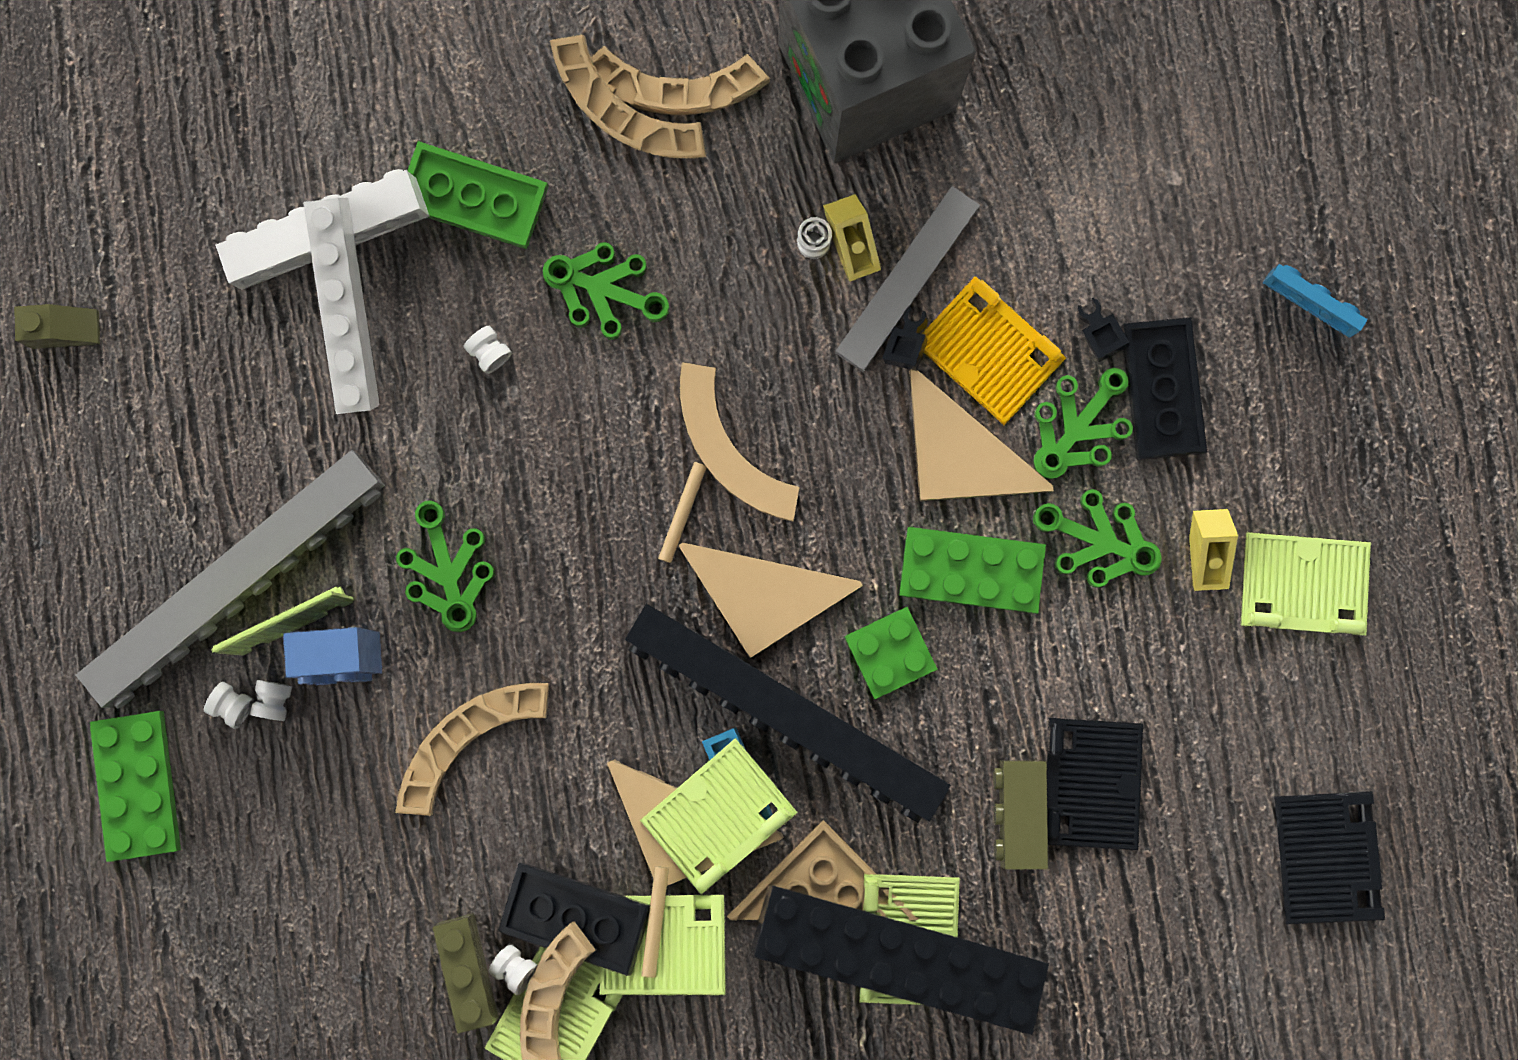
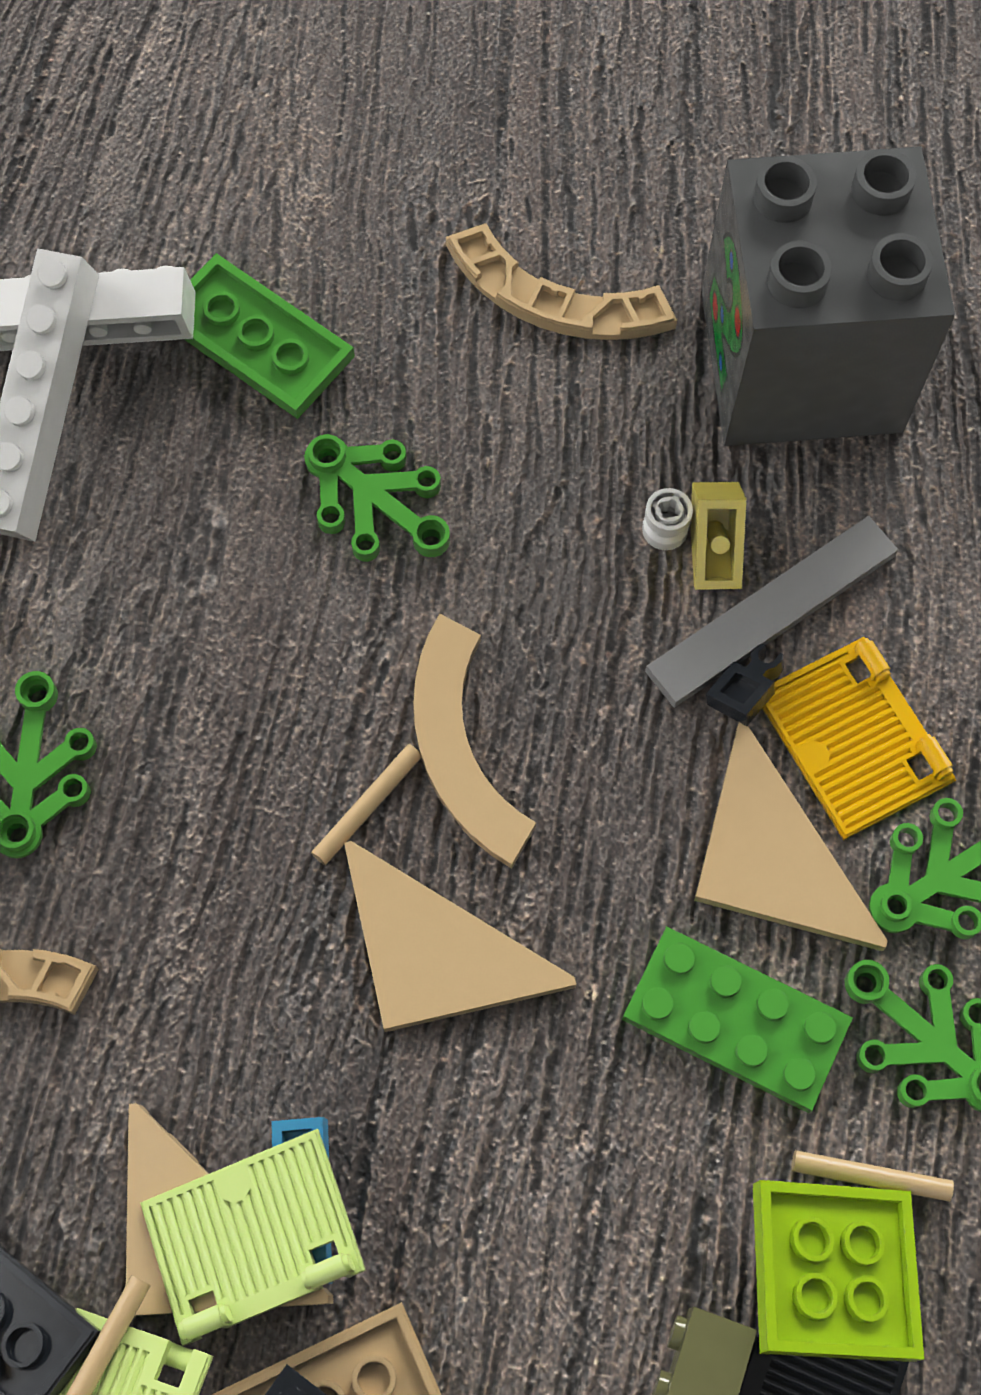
camera: 20 degrees right, 15 degrees down
(487, 349) = (196, 512): white wheel -> none
(616, 117) = (470, 305): tan tile -> none
(788, 713) = (413, 1131): black brick -> none
(890, 653) = (583, 1094): bright green plate -> none
(1083, 708) = (836, 1272): none -> lime plate
(1087, 639) = (872, 1175): none -> tan bar

